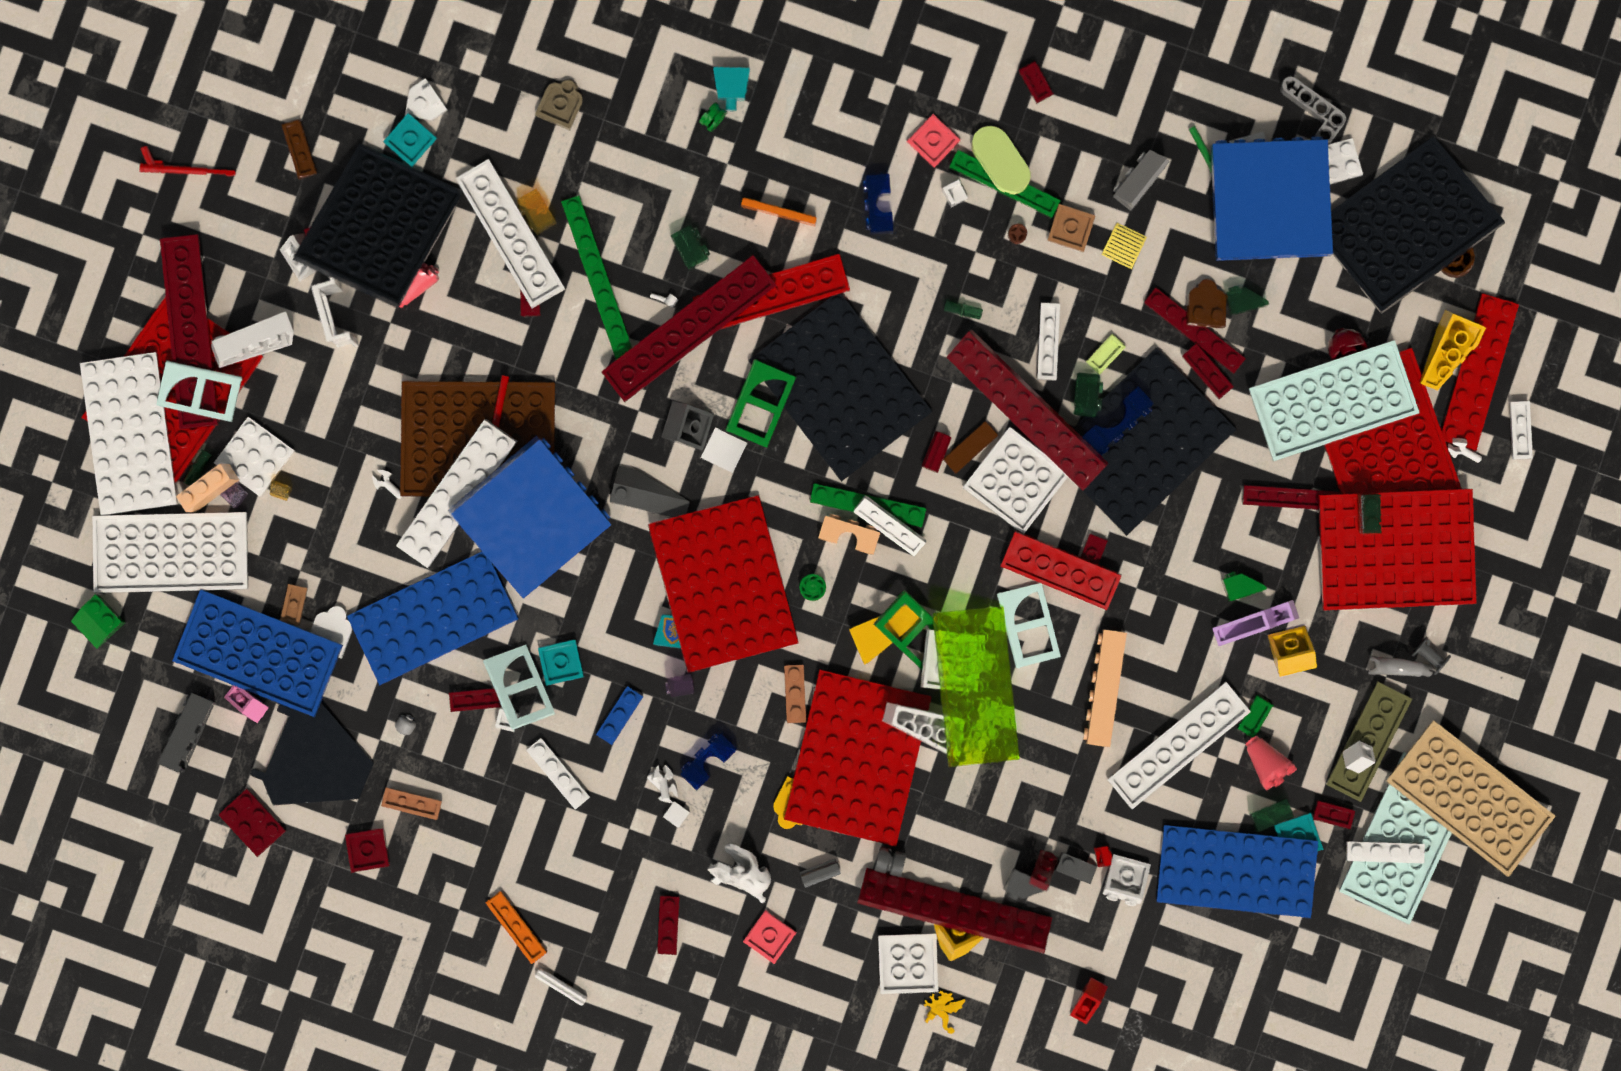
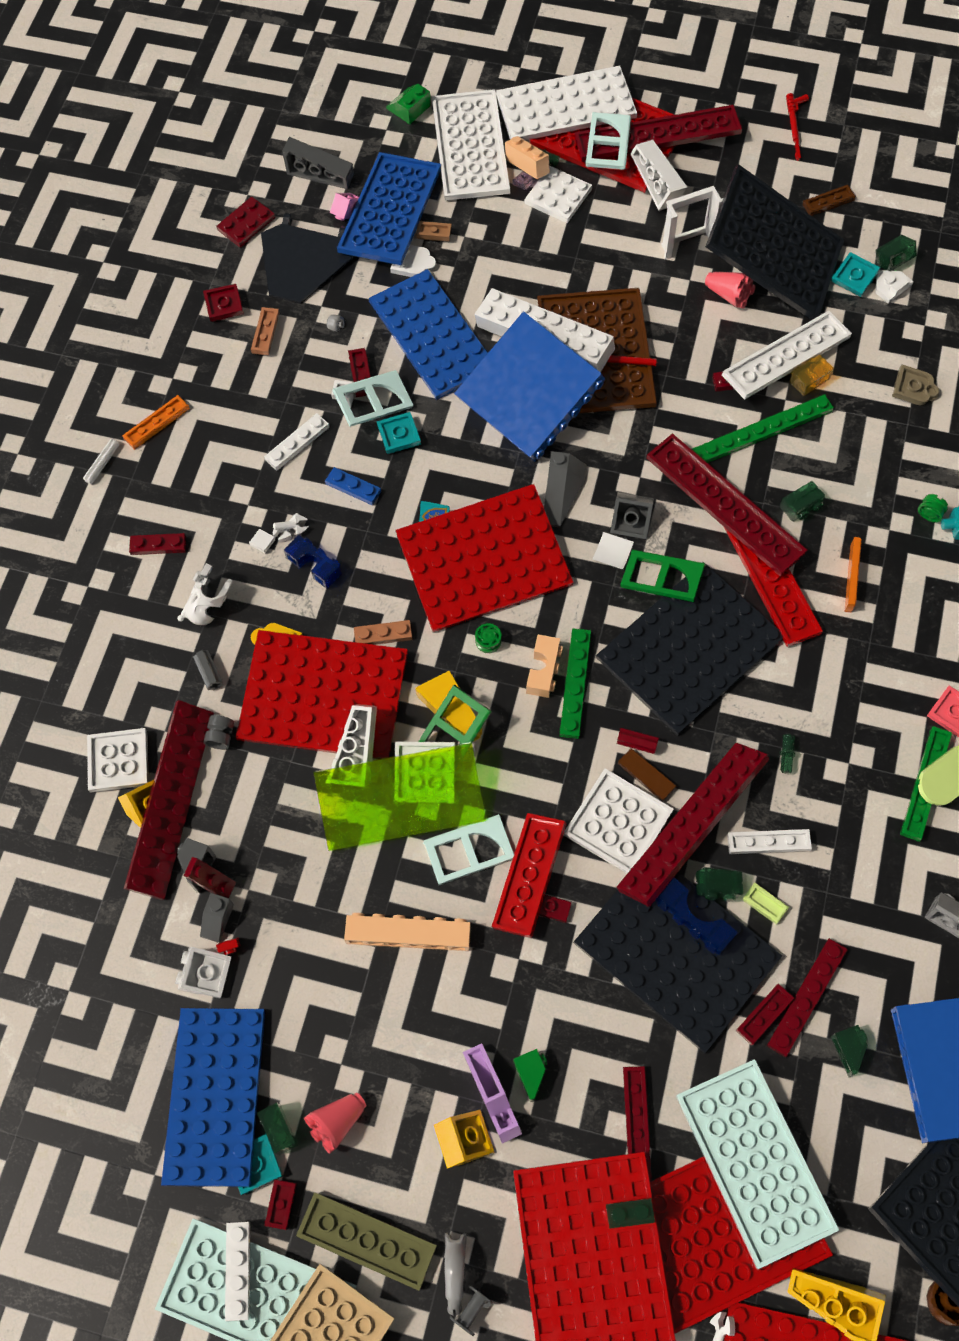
camera: 90 degrees right, 20 degrees down
(280, 490) = (532, 213): clear yellow slope -> none
(387, 90) = (896, 252): none -> clear green brick
(387, 484) = (547, 288): white bar -> none
(670, 300) = (749, 492): white hand -> none
(680, 686) = (382, 527): clear purple brick -> none
(769, 937) = (146, 632): coral tile -> none
(876, 187) = (895, 659): clear blue arch -> none
(889, 525) = (557, 700): white plate -> none
(939, 1009) = (72, 795): yellow piece -> none
(954, 193) = (906, 733): white panel -> none
(1019, 231) = (880, 797): copper wheel -> none
(1071, 228) = (893, 854): medium nougat plate -> none
(1088, 1000) = (76, 944): red slope -> none
(1124, 245) = (885, 913): light yellow sticker -> none
(1179, 745) = (352, 1019): white plate -> none
(1206, 306) = (837, 1006): reddish brown plate -> none
(1253, 721) = (387, 1102): green tile -> none
(1345, 343) = (825, 1171): dark red cylinder -> none
(1359, 757) = (346, 1227): white panel -> none

